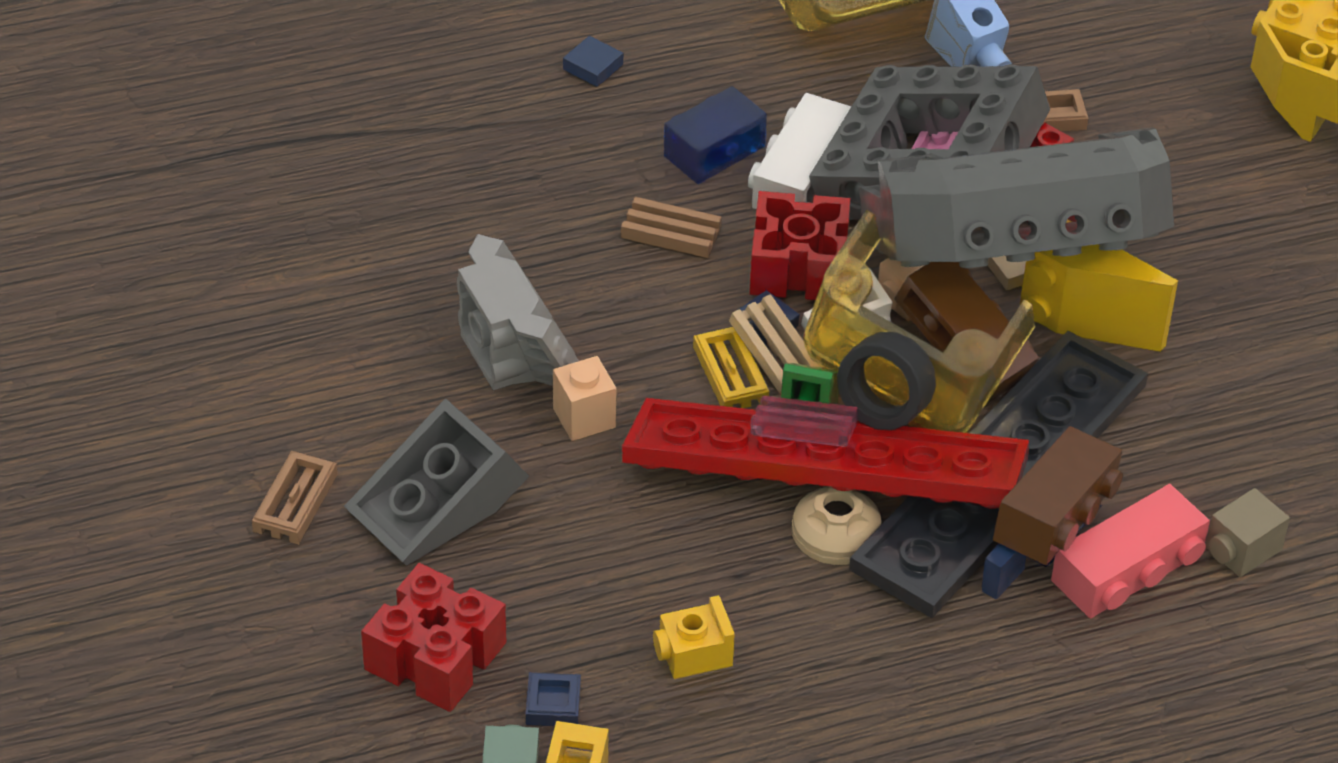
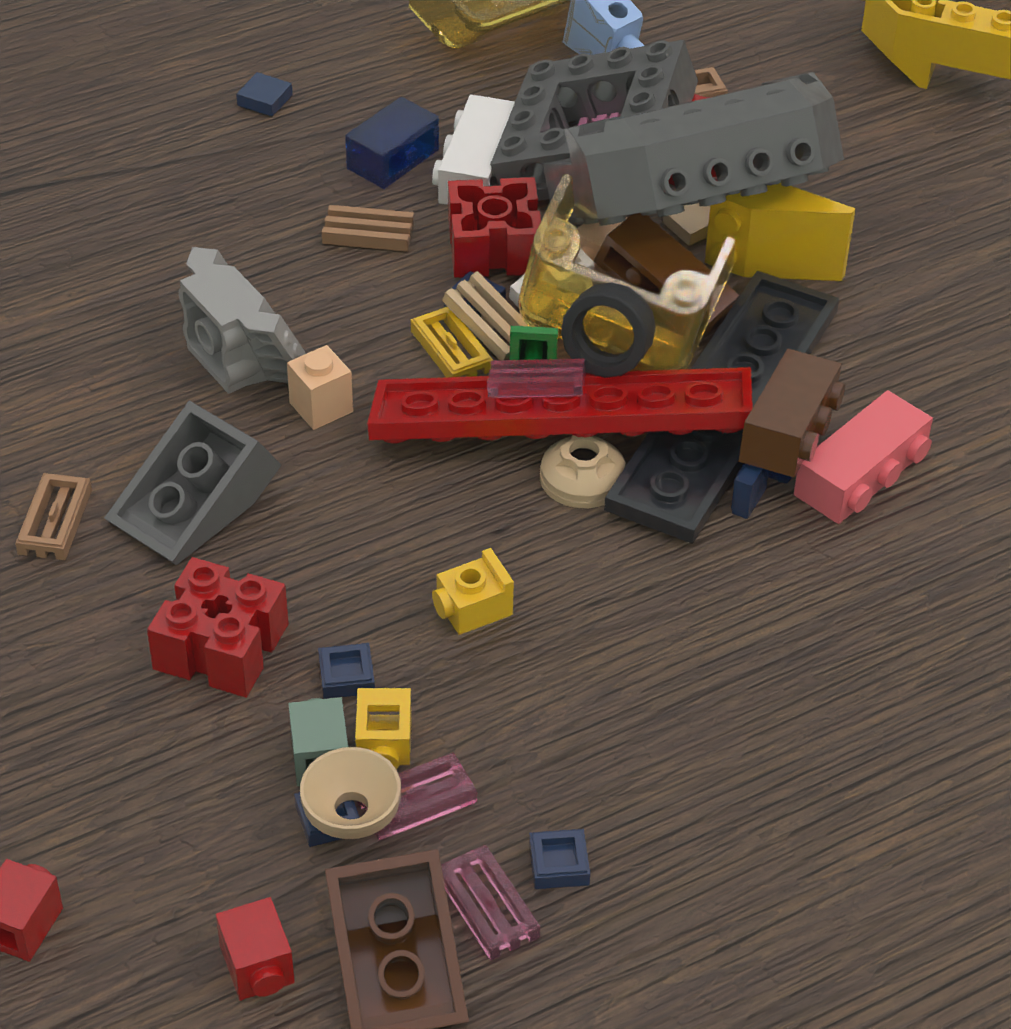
camera: 10 degrees left, 0 degrees up
(1247, 532) = (966, 425): dark tan brick -> none

